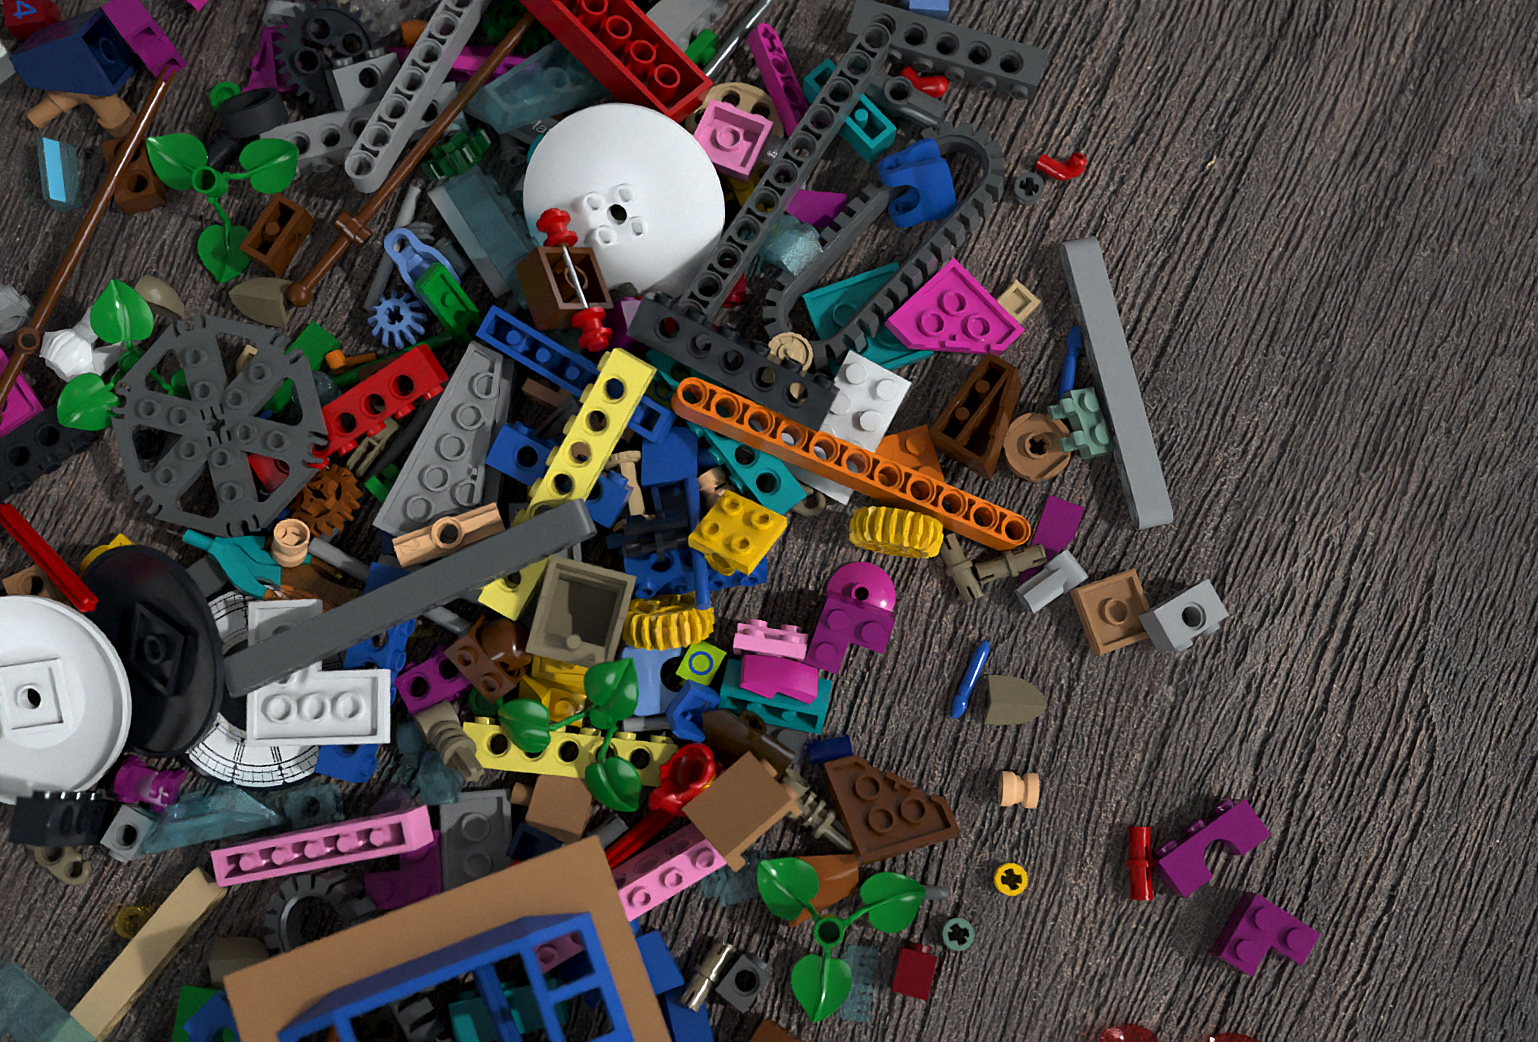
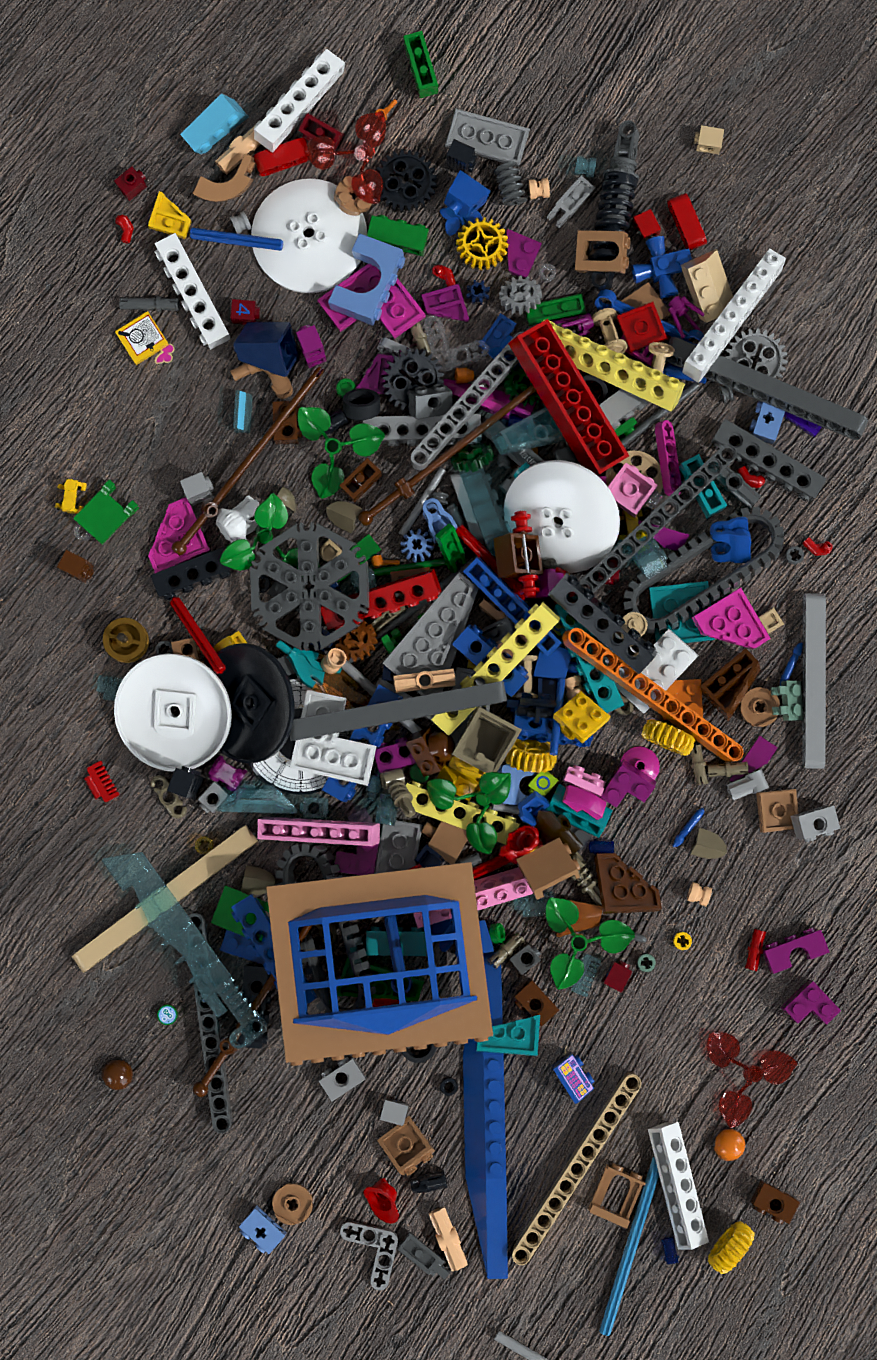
camera: 15 degrees right, 5 degrees up
(504, 299) = (487, 557): none -> red axle
(683, 948) = (497, 933): none -> green tile

